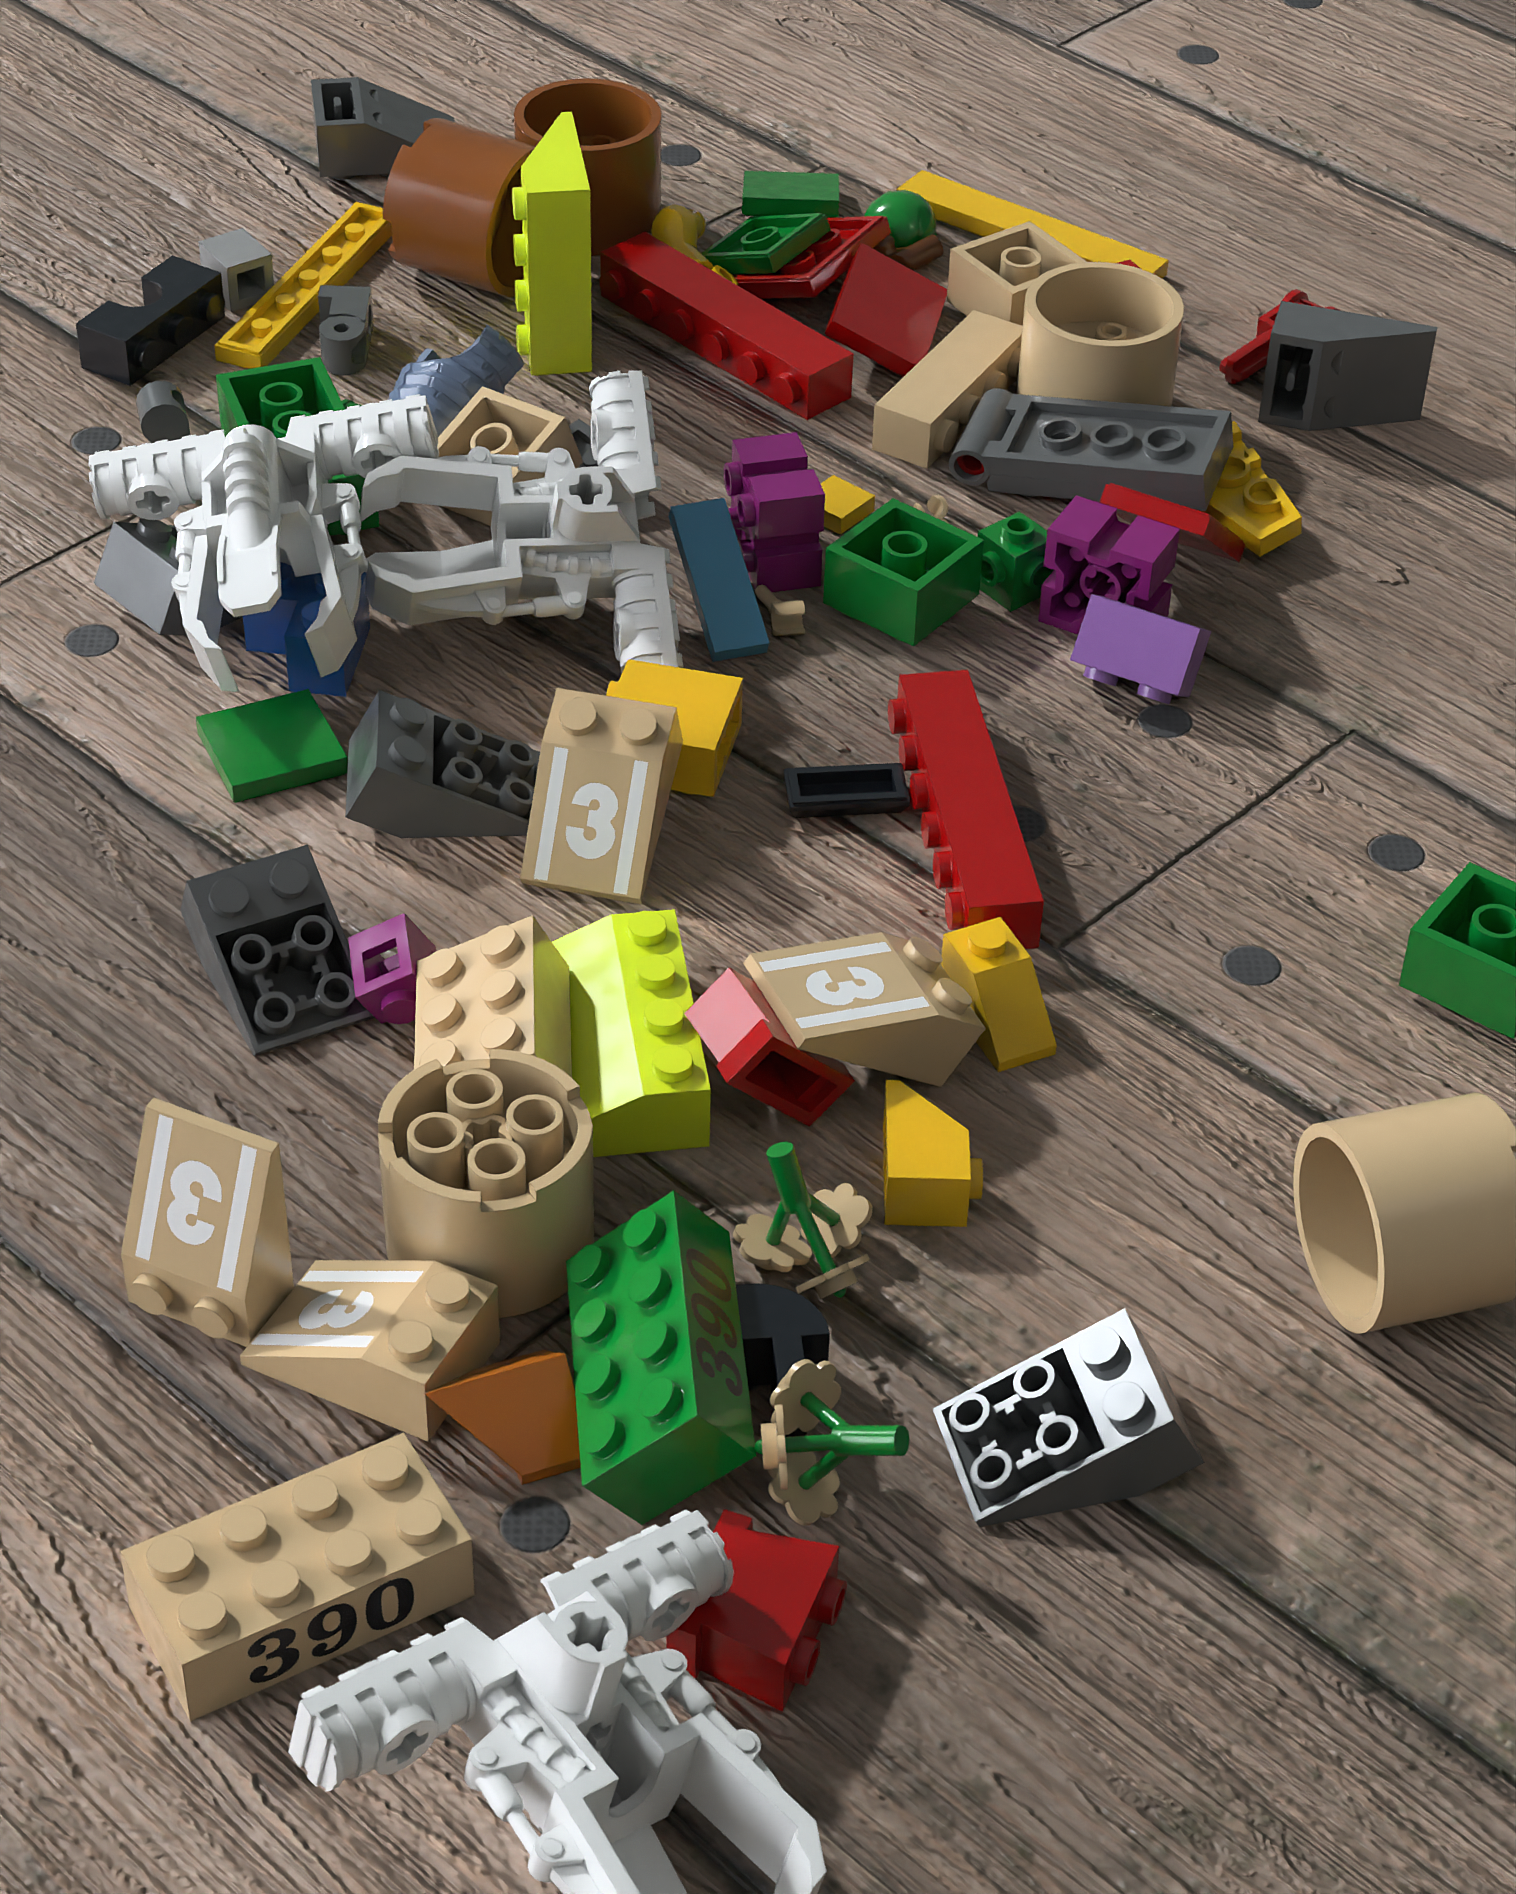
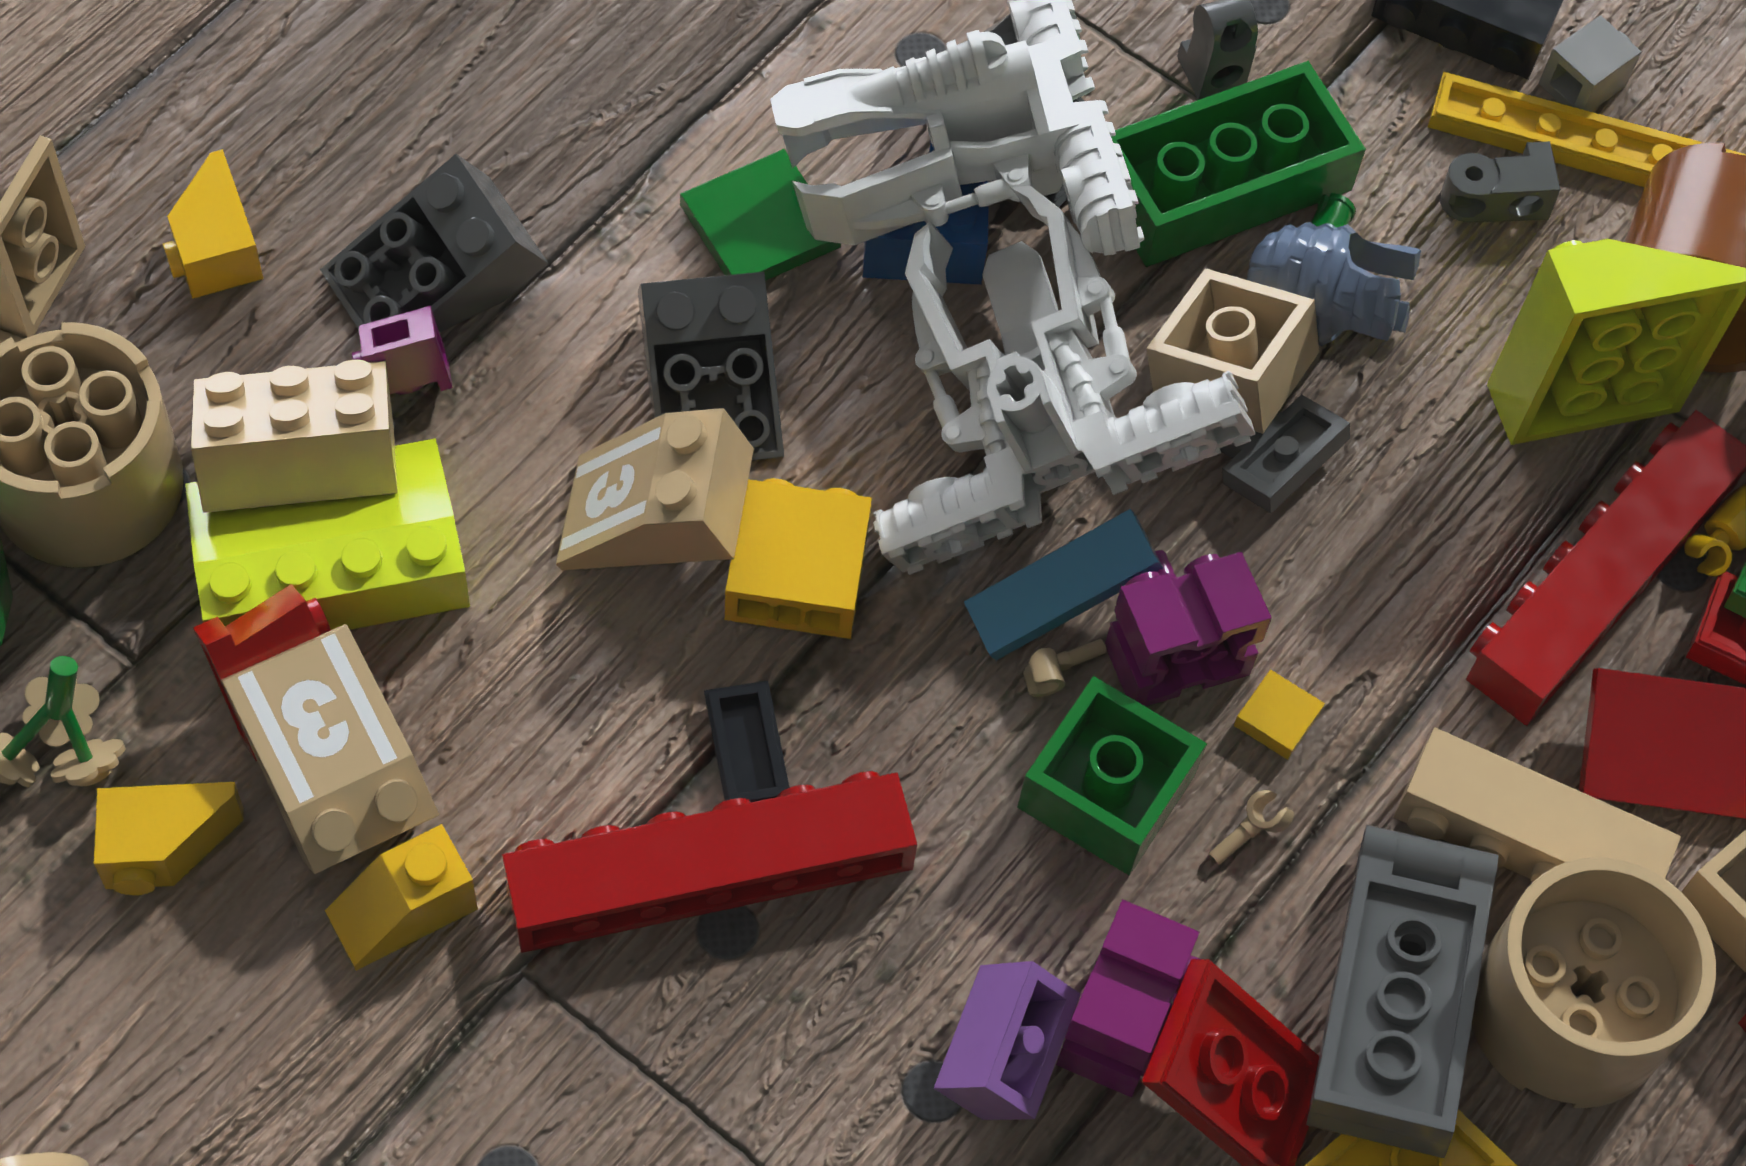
camera: 80 degrees right, 20 degrees up
(212, 1089) = (211, 233): none -> yellow slope
(1013, 561) = (1176, 889): green brick -> none

